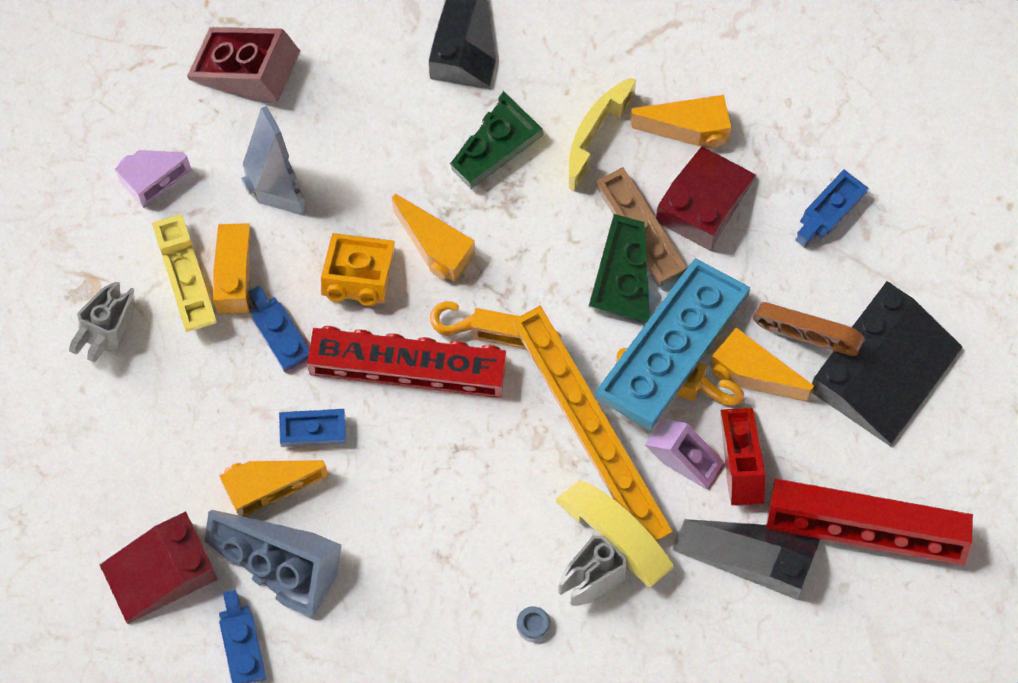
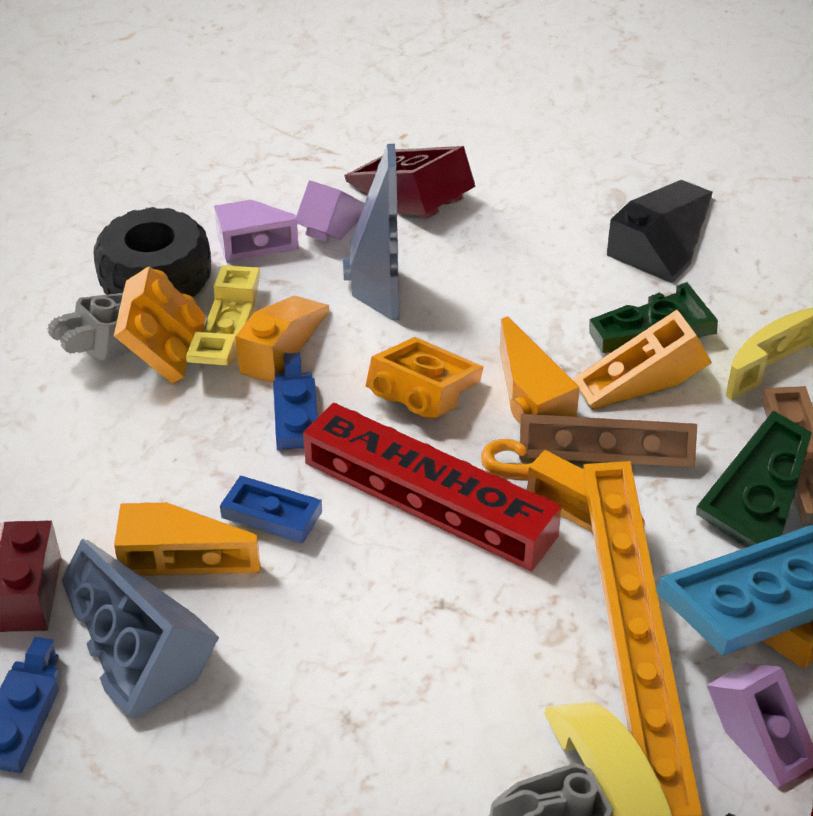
camera: 25 degrees right, 25 degrees down
(86, 215) = (154, 239): none -> black tyre
(147, 308) = (158, 322): none -> light orange plate
(202, 129) = (327, 211): none -> lavender slope
(505, 192) = (646, 364): none -> light orange slope
(509, 272) = (610, 440): none -> medium nougat plate

